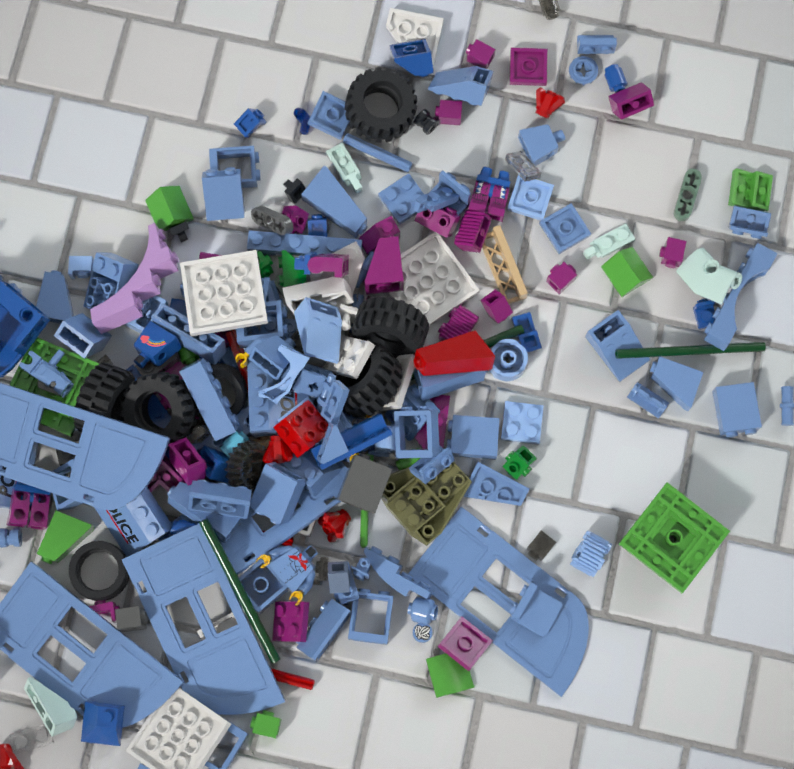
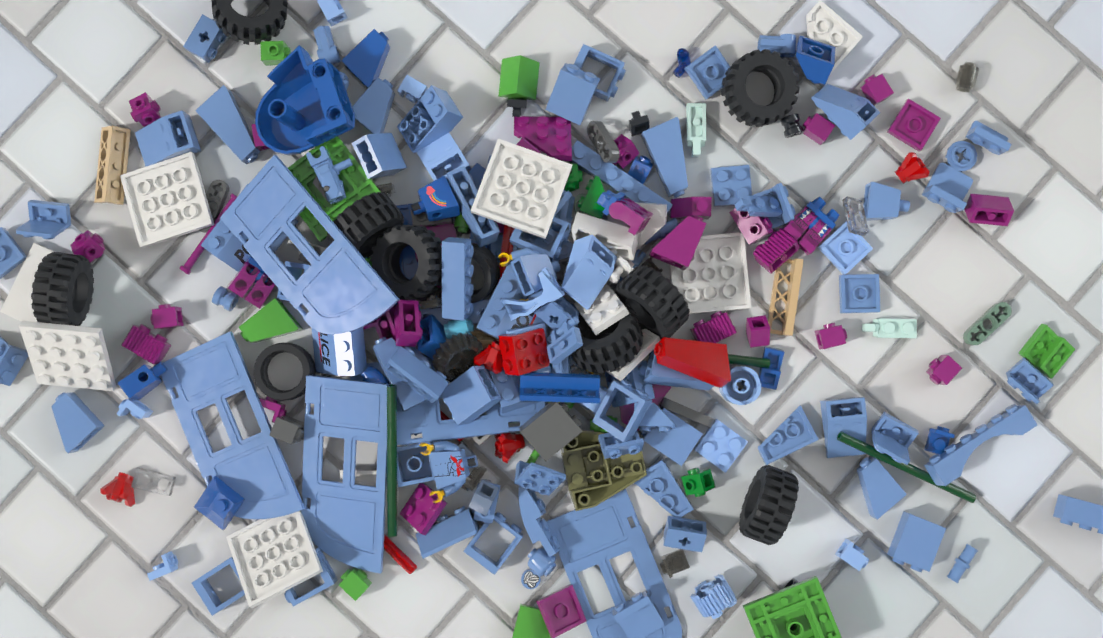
camera: 30 degrees right, 10 degrees up
(26, 261) = (368, 57): none -> blue slope
(51, 708) = (183, 469): light aqua slope -> none
(144, 284) = (432, 148): lavender arch -> none
(219, 239) = (547, 134): none -> magenta plate
(250, 121) = (634, 37): blue bracket -> none
(332, 445) = (539, 384): medium blue slope -> none
(361, 569) = (507, 499): medium blue hinge -> none
(377, 152) = (732, 130): medium blue axle -> none
(377, 533) = (537, 477): none -> medium blue bracket
(380, 58) = (783, 44): none -> medium blue piece
(450, 427) = (655, 419): none -> medium blue slope
(477, 409) = (687, 412): none -> dark grey beam
(543, 510) = (685, 534): none -> medium blue brick
(576, 382) = (788, 437): none -> medium blue wing
(587, 102) = (948, 188): none -> medium blue bracket
(589, 443) = (768, 505): none -> black tyre
(615, 78) = (986, 180): blue brick -> none
(626, 271) = (891, 363): bright green slope -> none
(648, 400) = (842, 488): medium blue hinge -> none
(664, 330) = (893, 437): none -> medium blue bracket
(690, 451) = (852, 555): none -> light blue brick
(707, 276) = (953, 402): light aqua panel -> none

